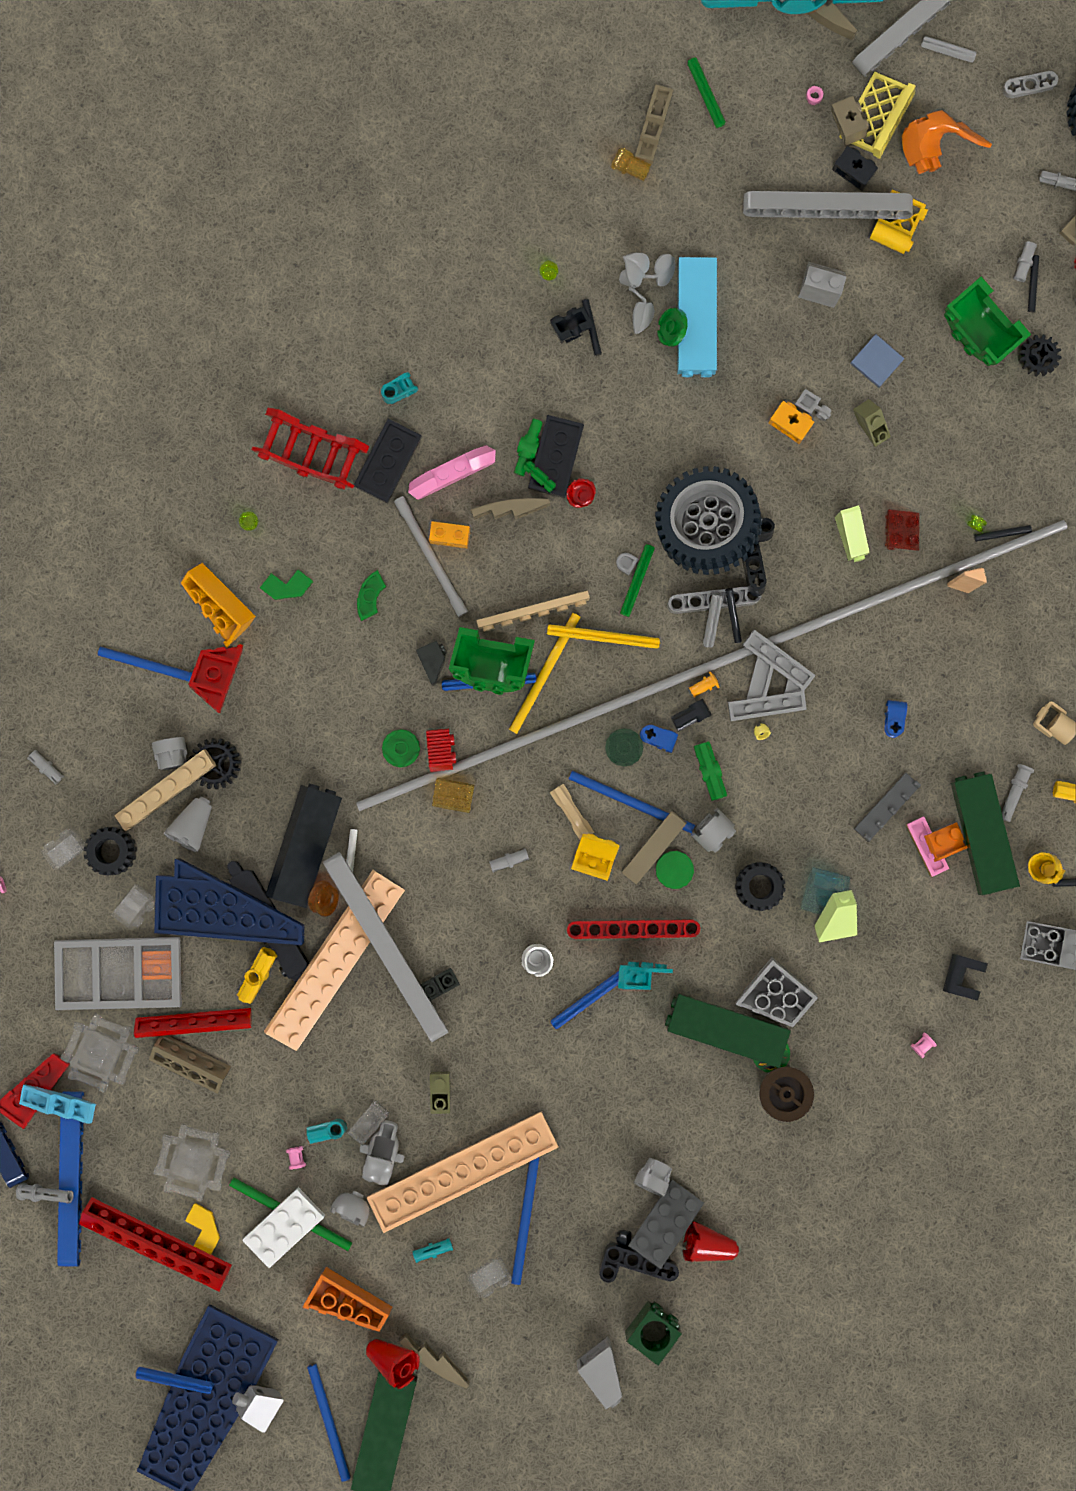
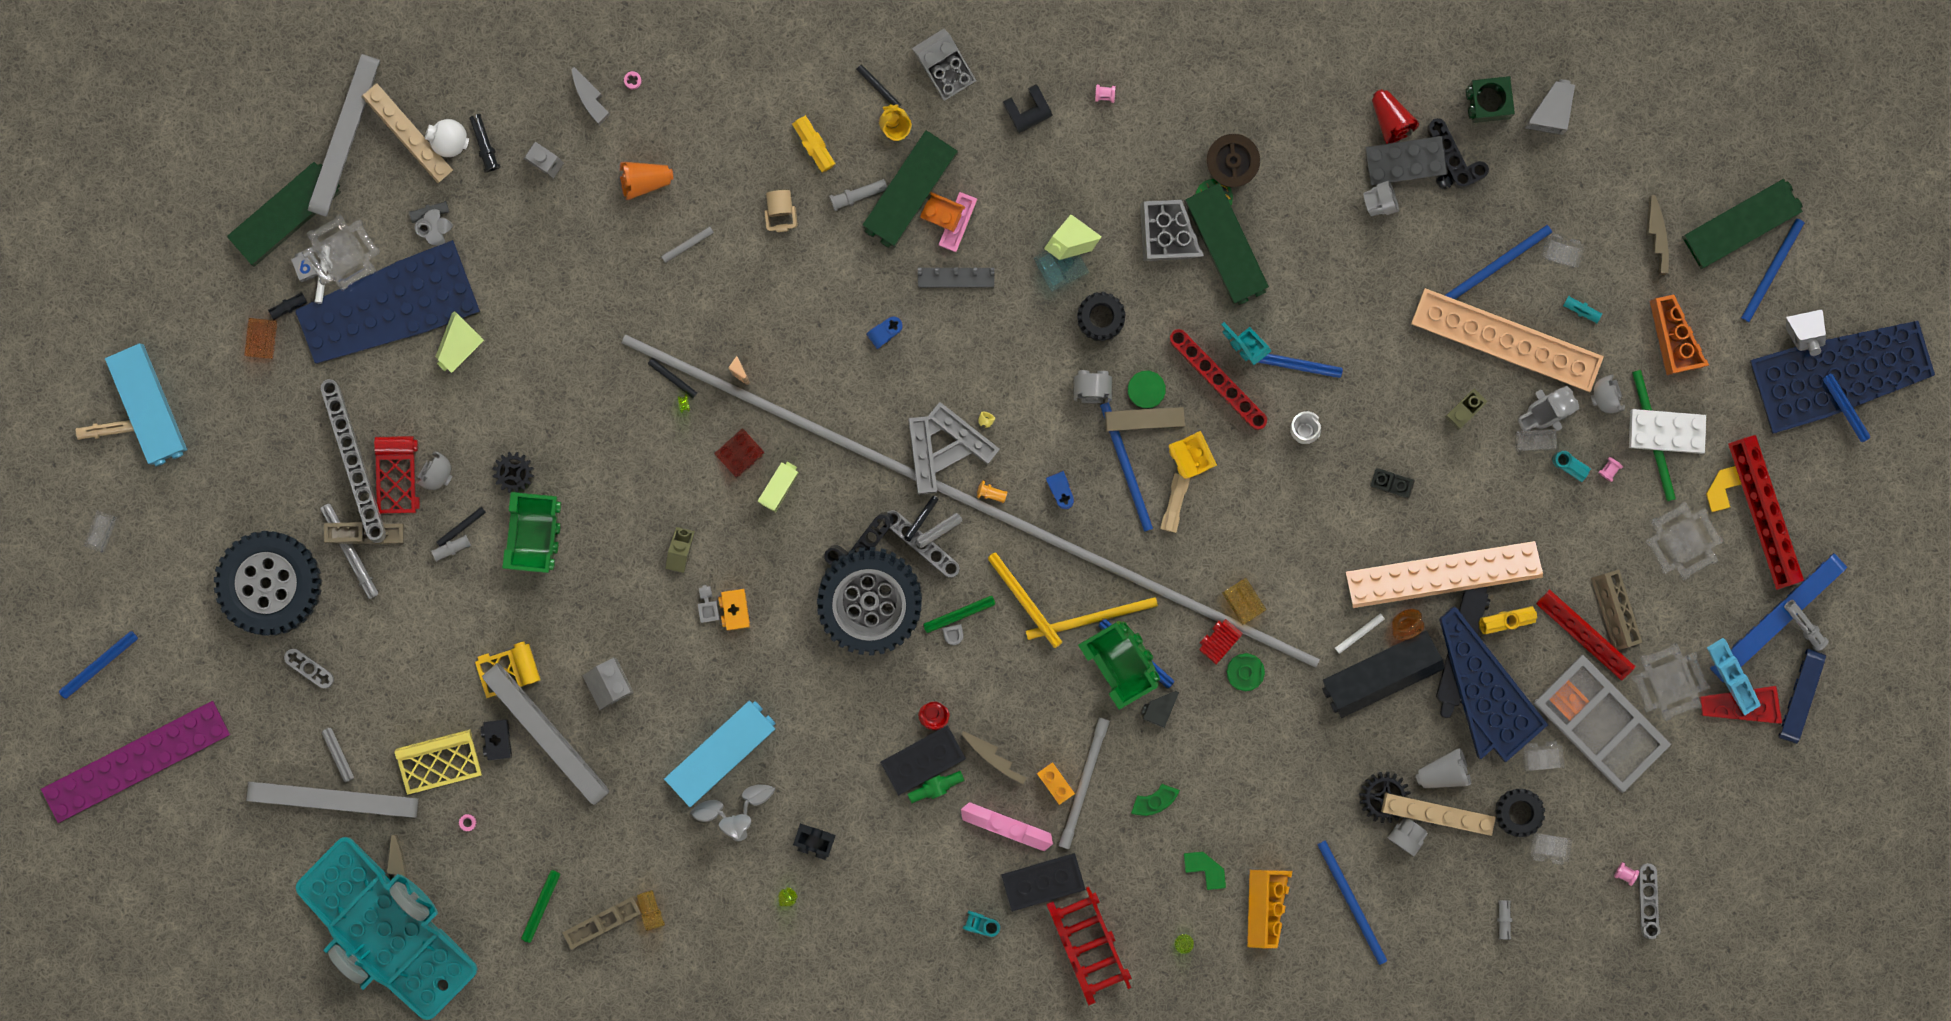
camera: 135 degrees left, 0 degrees up
(214, 674) = (1320, 859): red wing -> none
(385, 946) = (1399, 545): light grey beam -> none
(393, 1362) = (1685, 264): red cone -> none
(509, 860) = (1253, 516): light grey pin -> none
(539, 476) = (950, 757): green axle -> none
(541, 609) = (1047, 664): tan plate -> none
(593, 333) = (804, 819): black bar -> none
(624, 747) = (1091, 509): clear green tile -> none
(672, 327) = (746, 763): green tile -> none
(694, 713) = (1019, 481): black piece -> none
(710, 770) = (1050, 430): green piece -> none
(849, 120) = (464, 788): dark tan brick -> none
(877, 361) = (628, 589): sand blue tile -> none
(923, 139) = (431, 707): orange hips -> none

